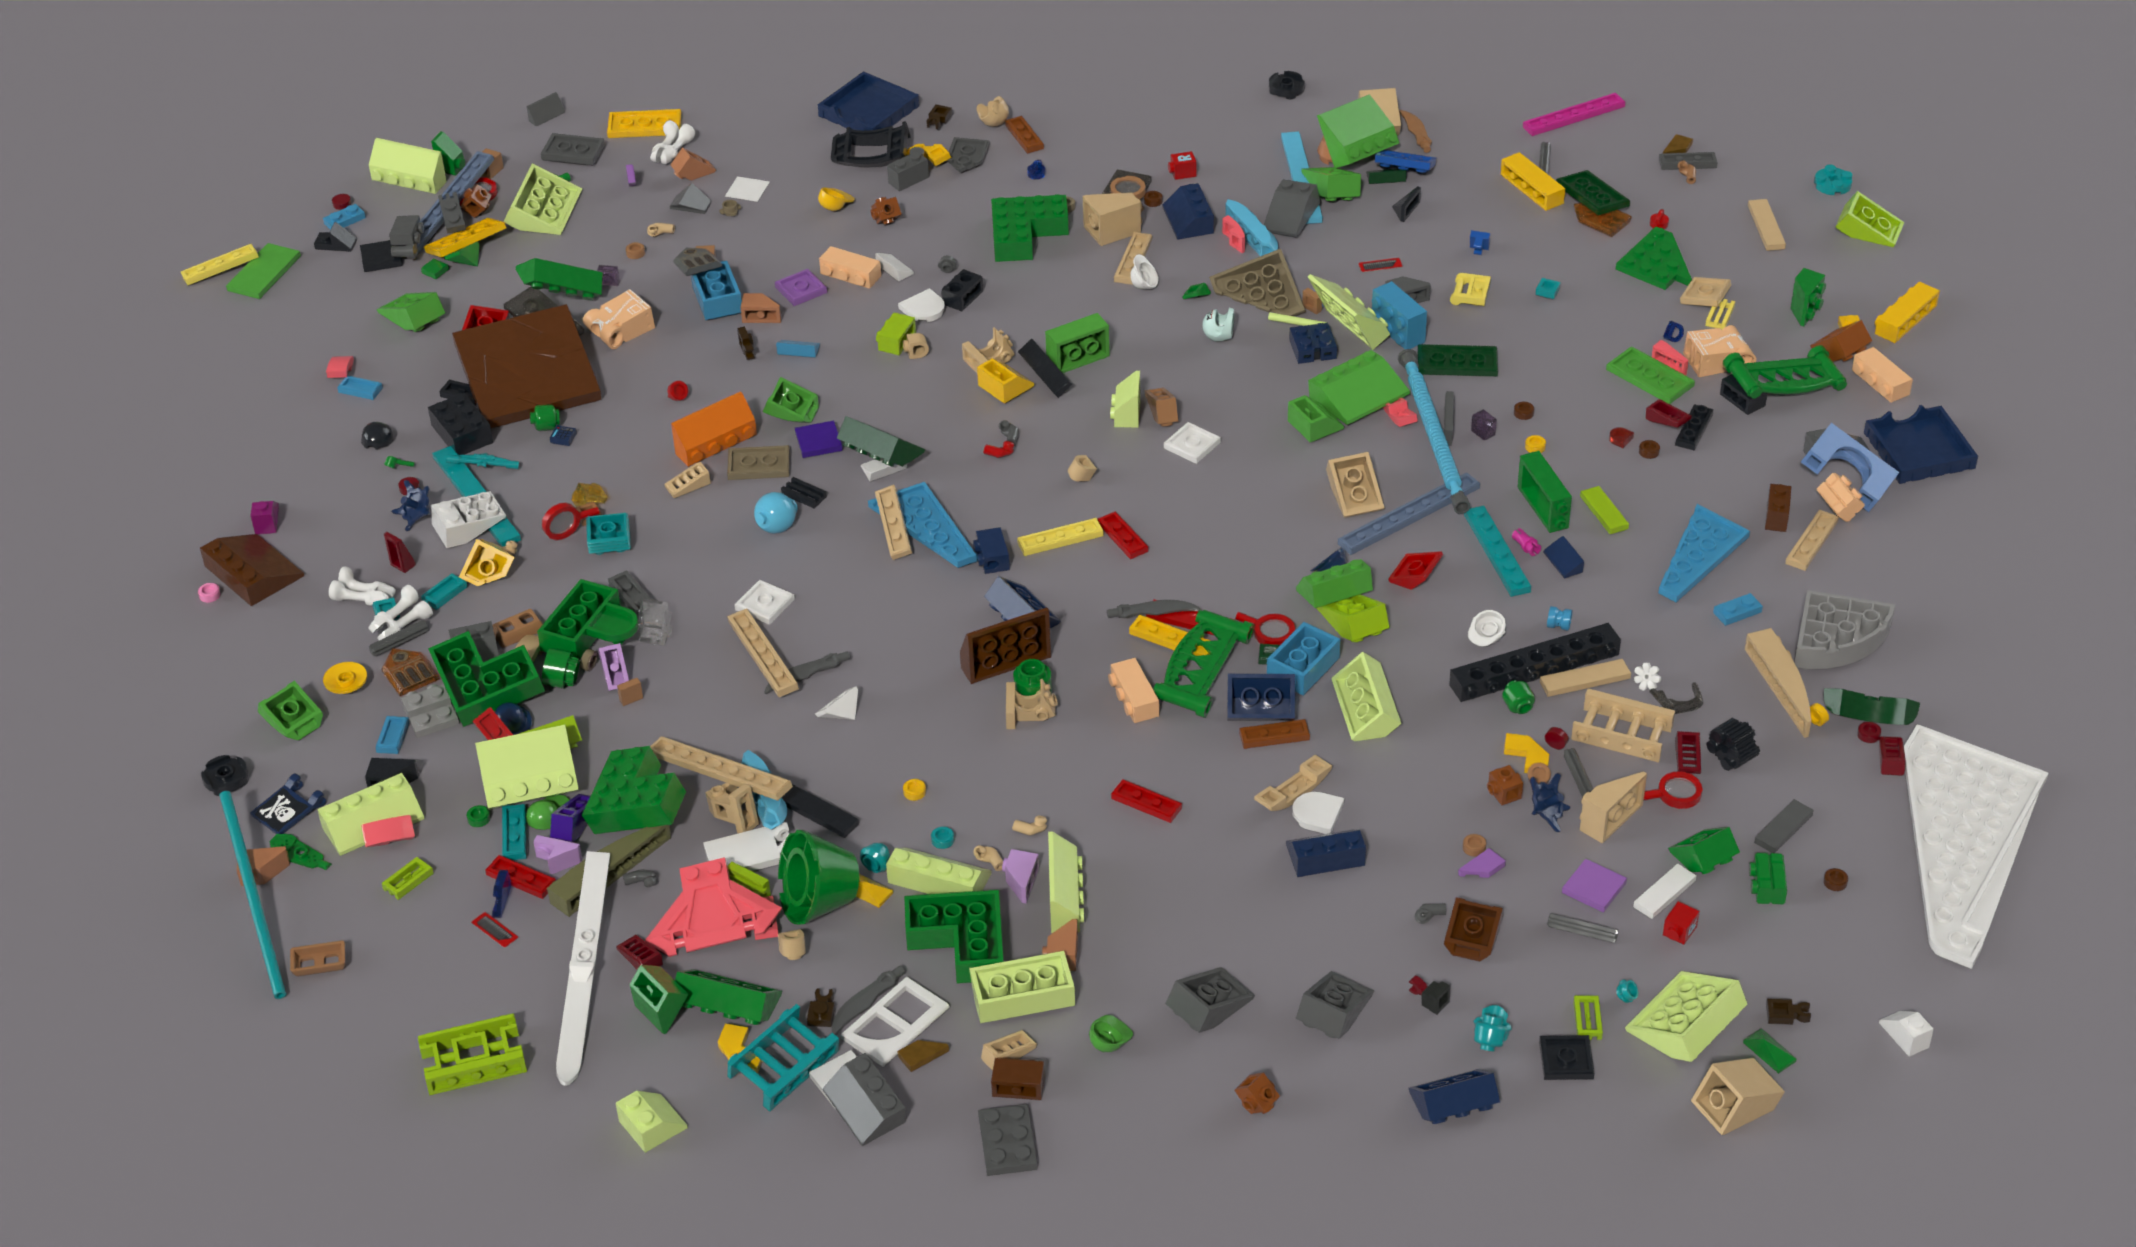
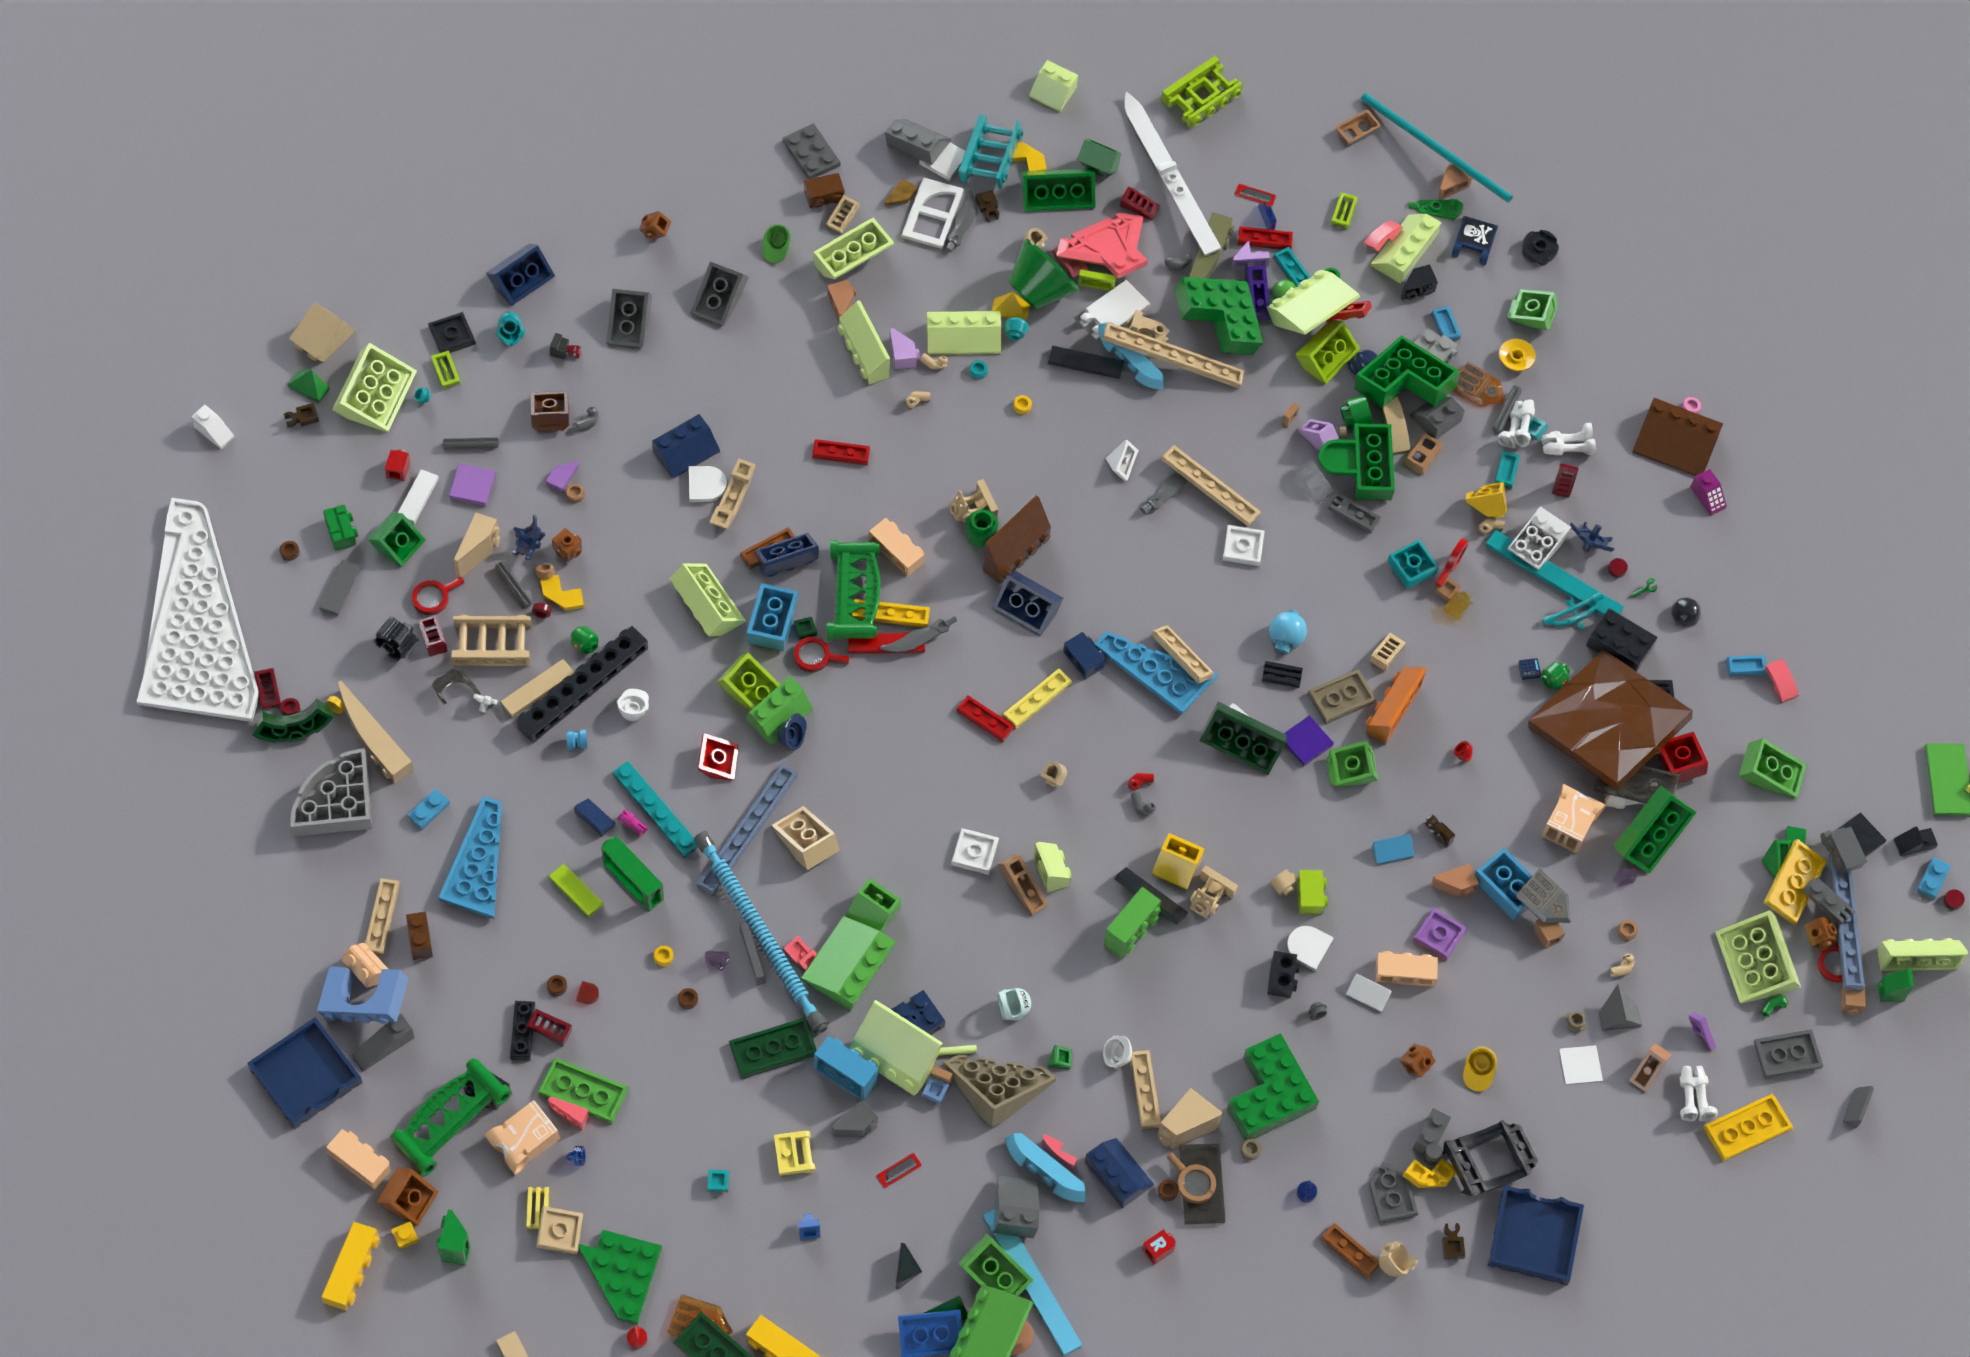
camera: 150 degrees right, 20 degrees up
(959, 921) = (919, 290): green brick -> none

